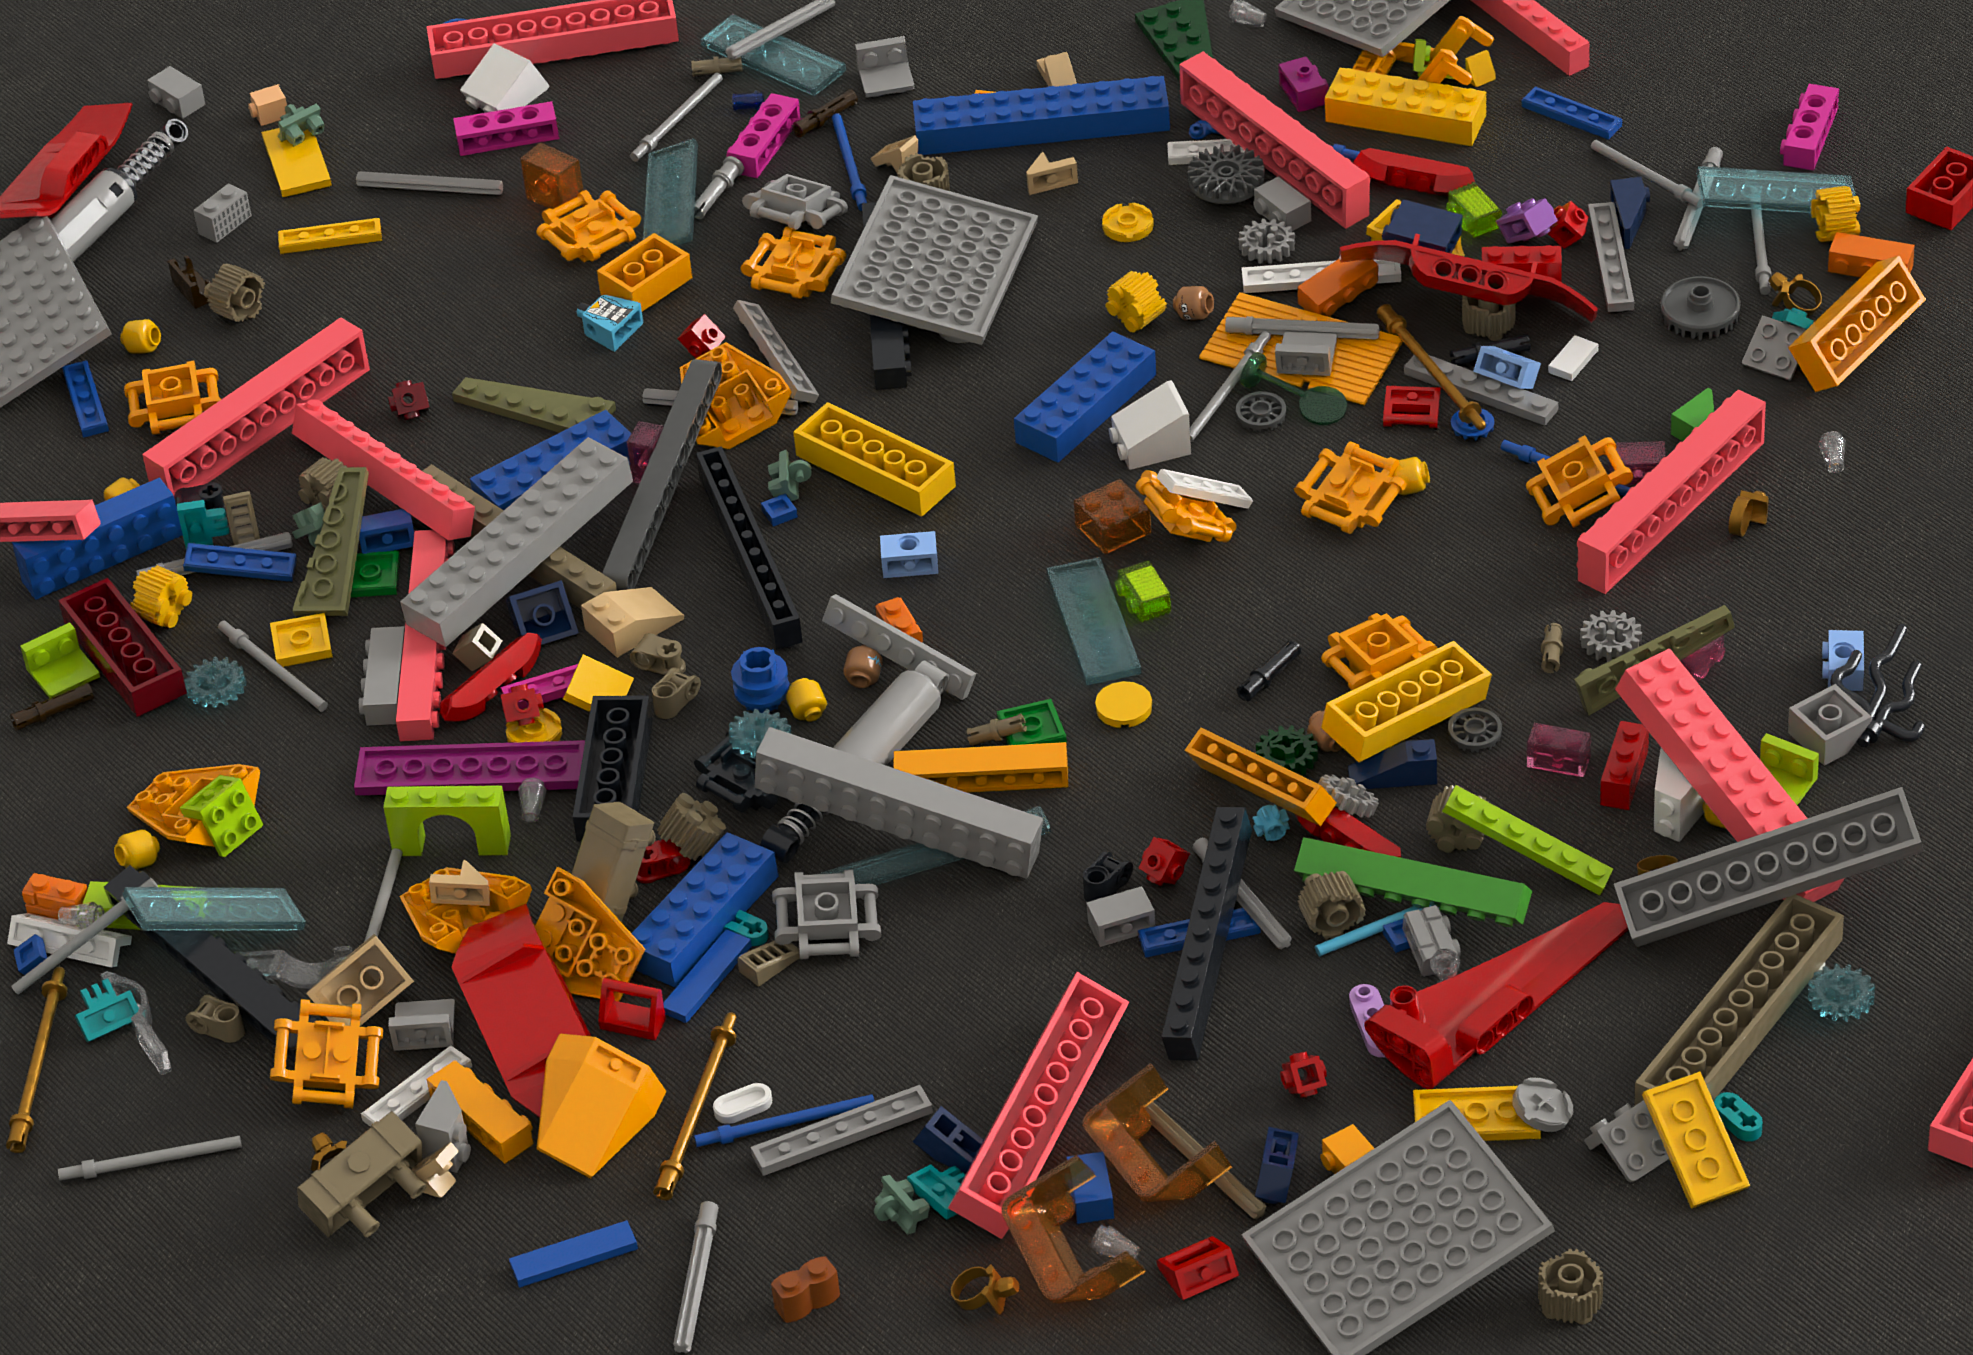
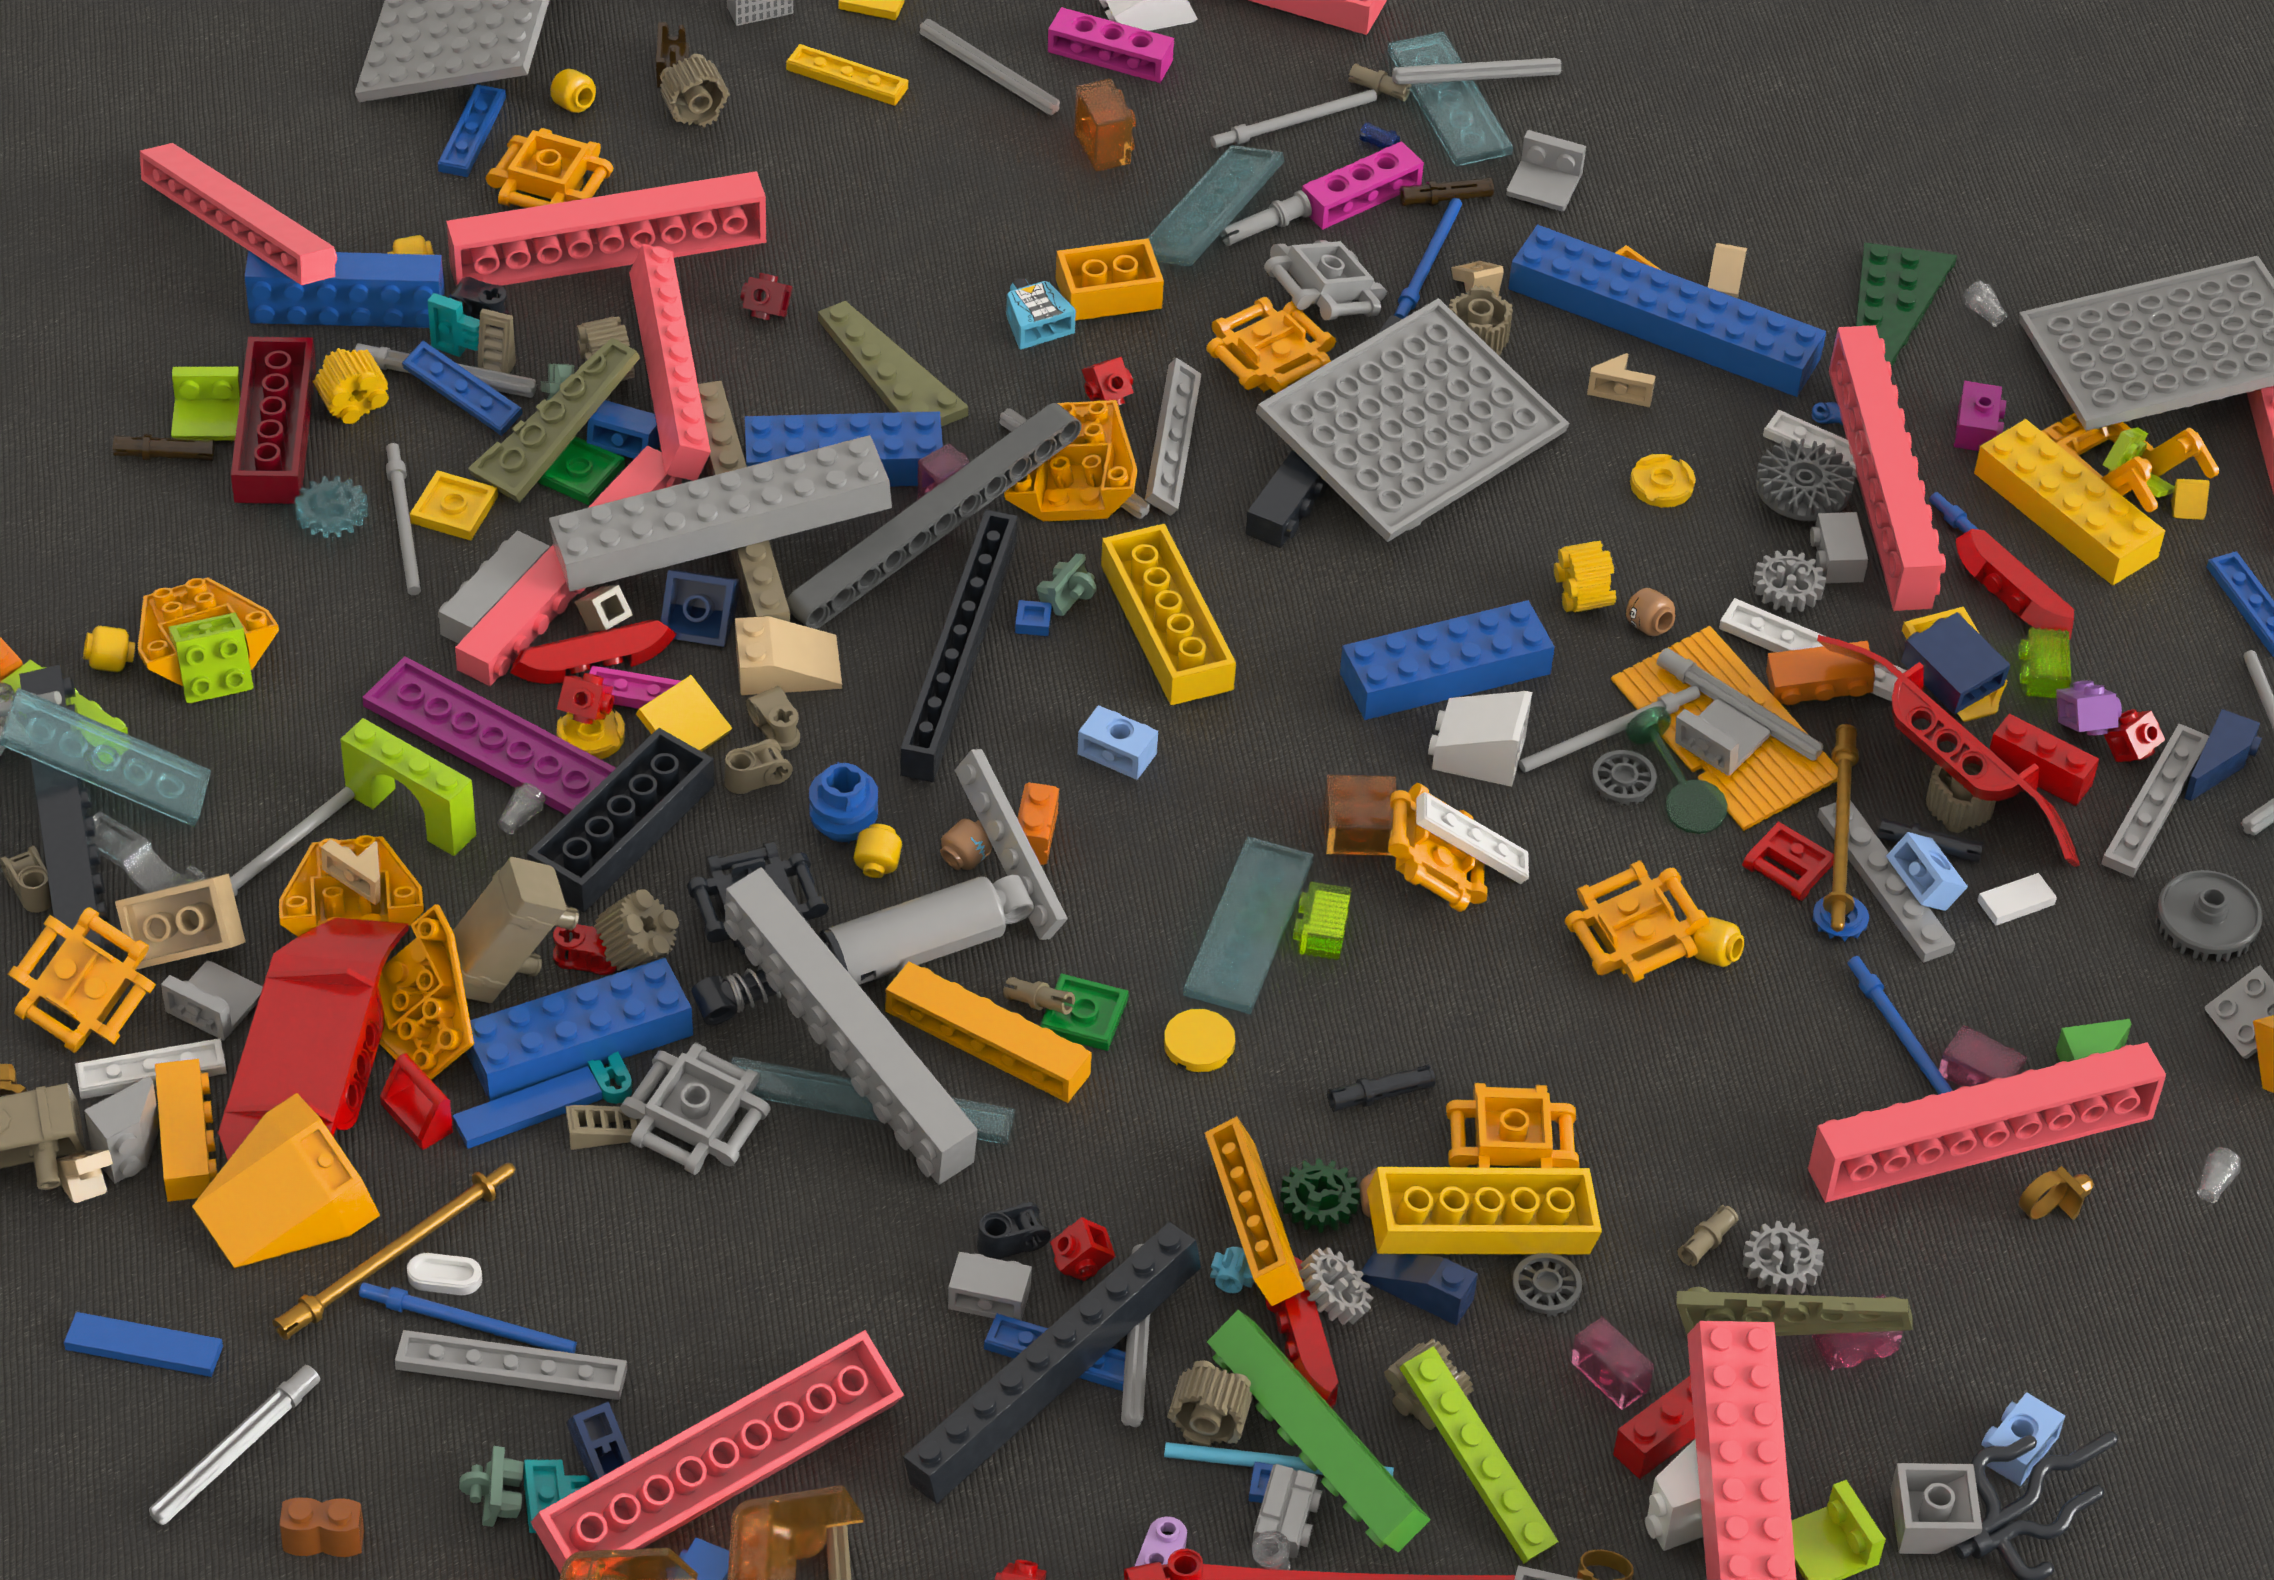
camera: 25 degrees right, 5 degrees up
(589, 229) = (1100, 199): light orange brick -> none
(750, 730) = (786, 861): clear light blue gear -> none
(1577, 478) = (1893, 1047): light orange brick -> none

